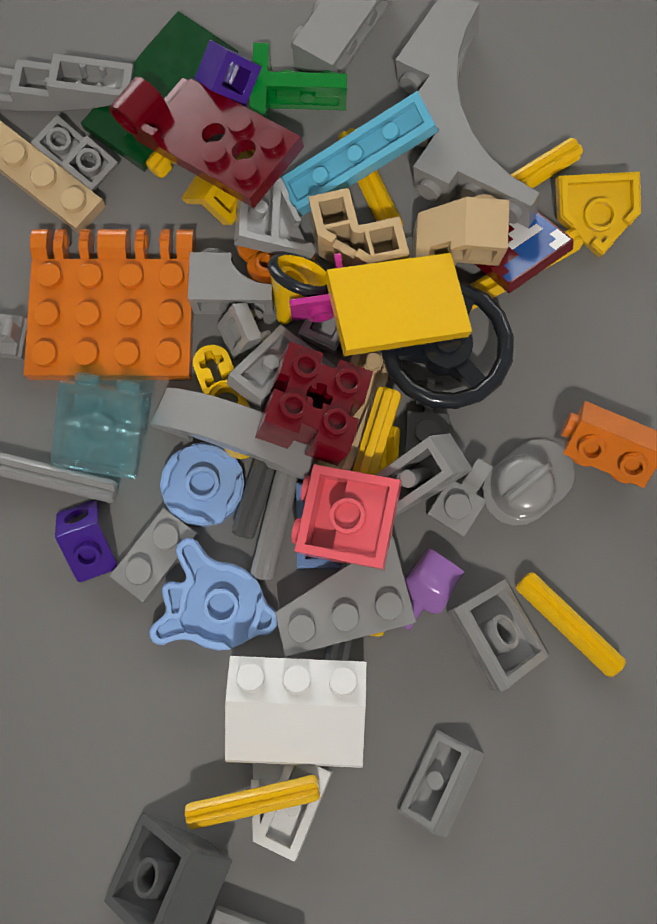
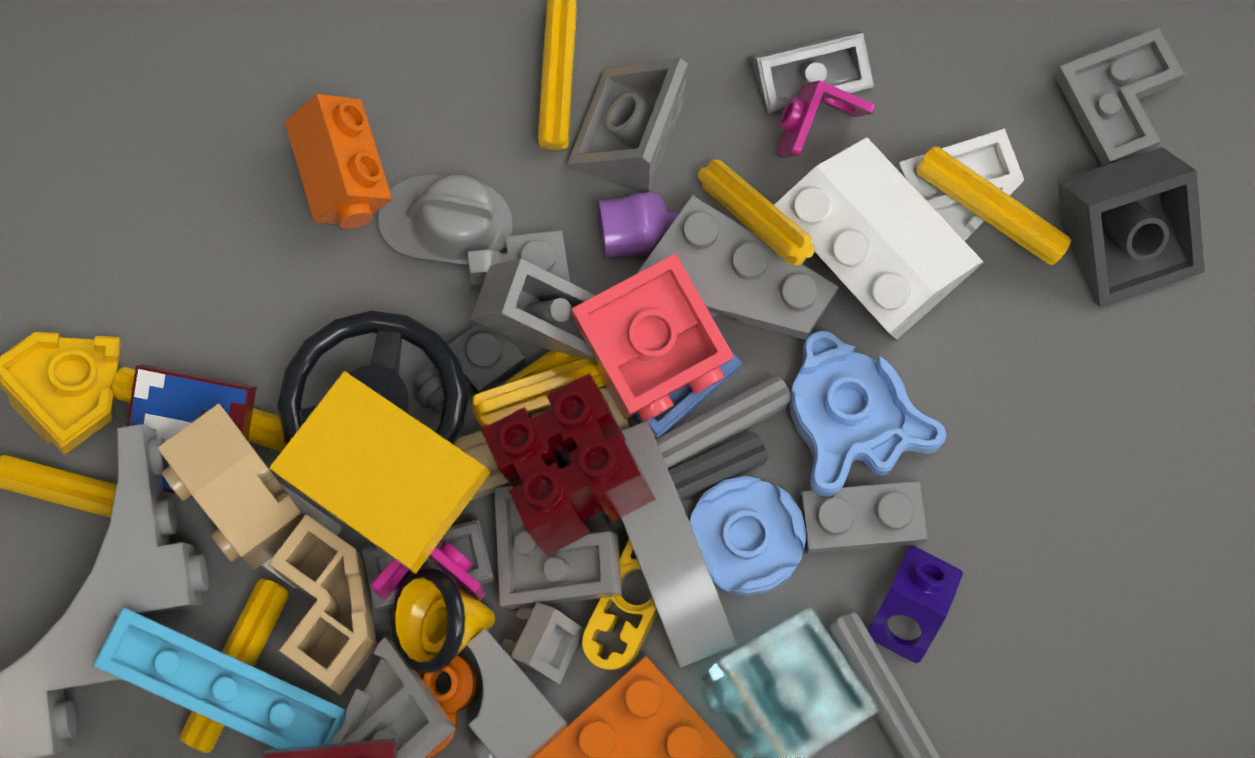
camera: 135 degrees left, 5 degrees down
(372, 650) = (756, 212): none -> yellow axle
(415, 743) = (801, 111): none -> dark pink bracket

